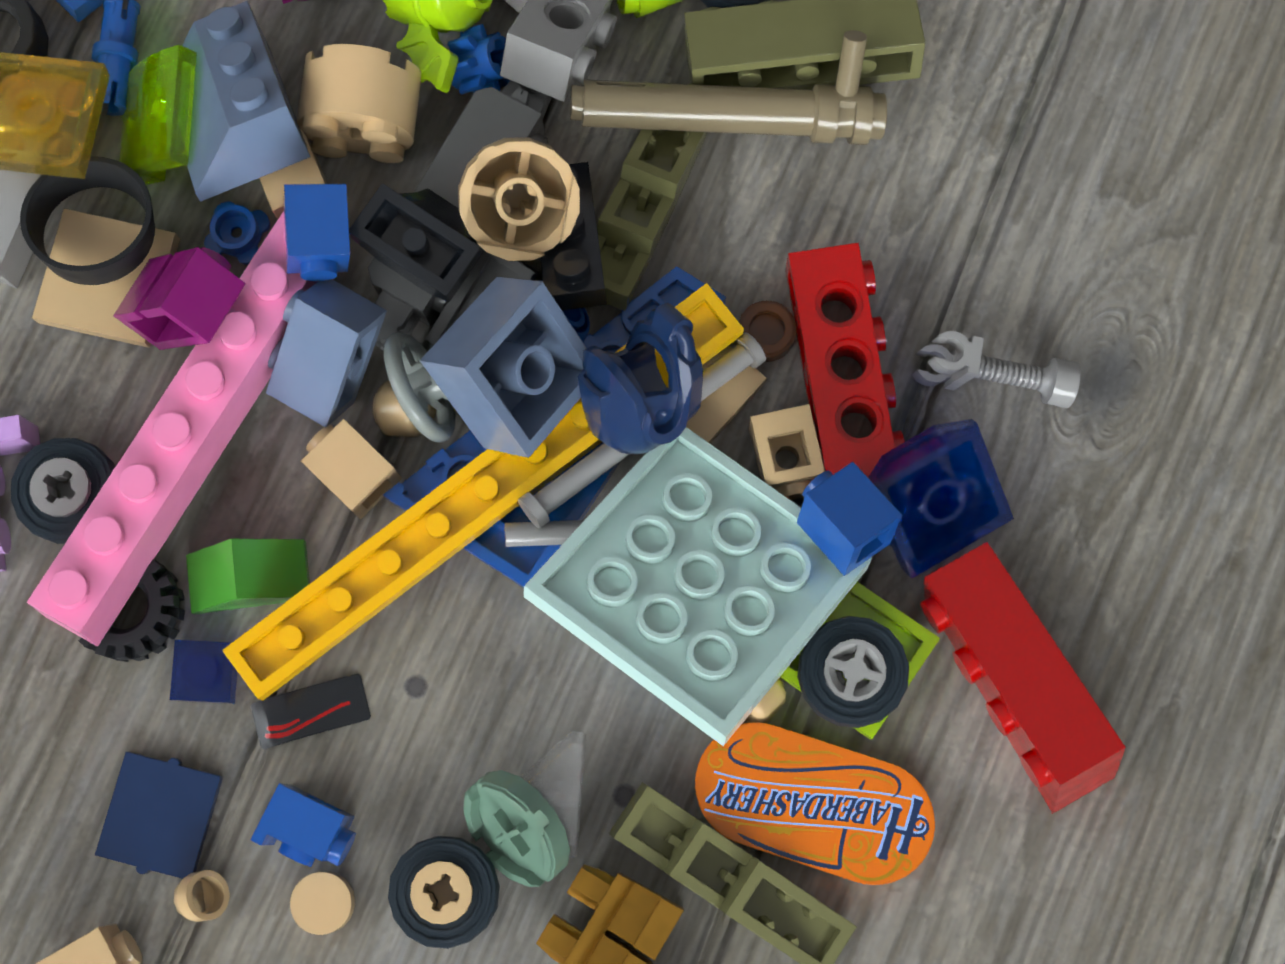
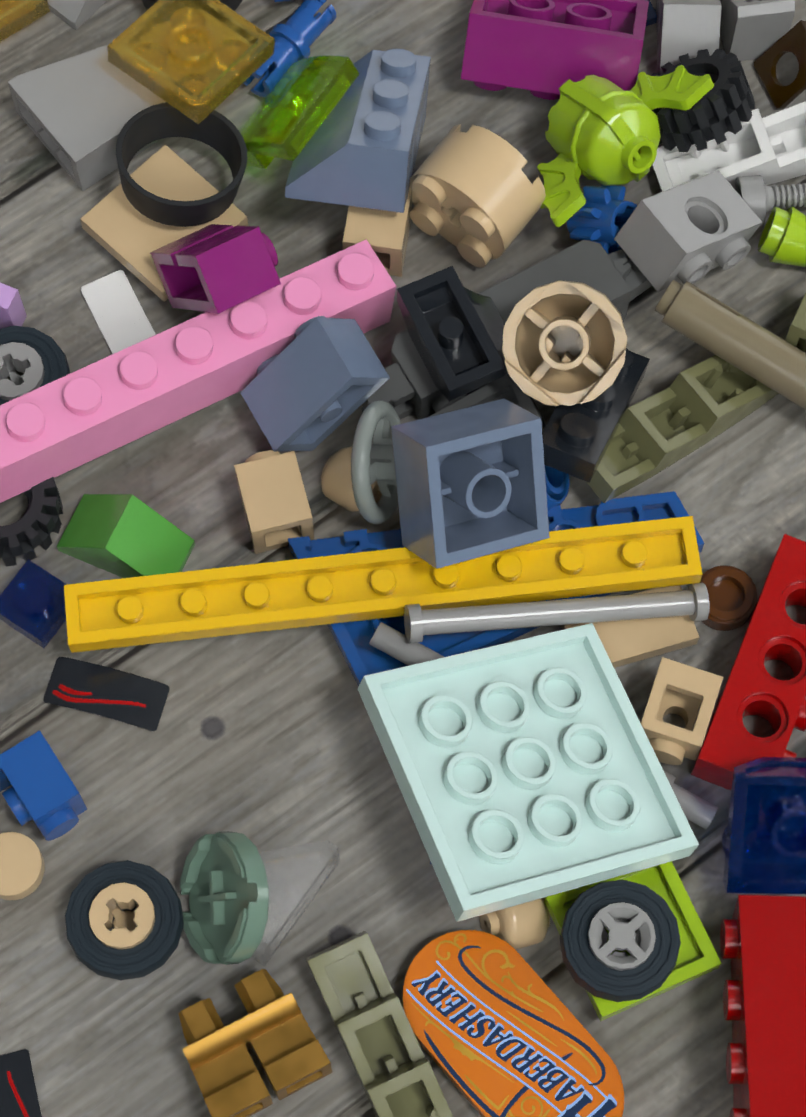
camera: 25 degrees right, 10 degrees down
(118, 381) = (117, 311): none -> white sticker
(230, 217) = (304, 232): blue plate -> none
(316, 230) = (369, 271): blue brick -> none
(624, 390) = (559, 564): dark blue helmet -> none
(847, 517) = (697, 792): blue brick -> none

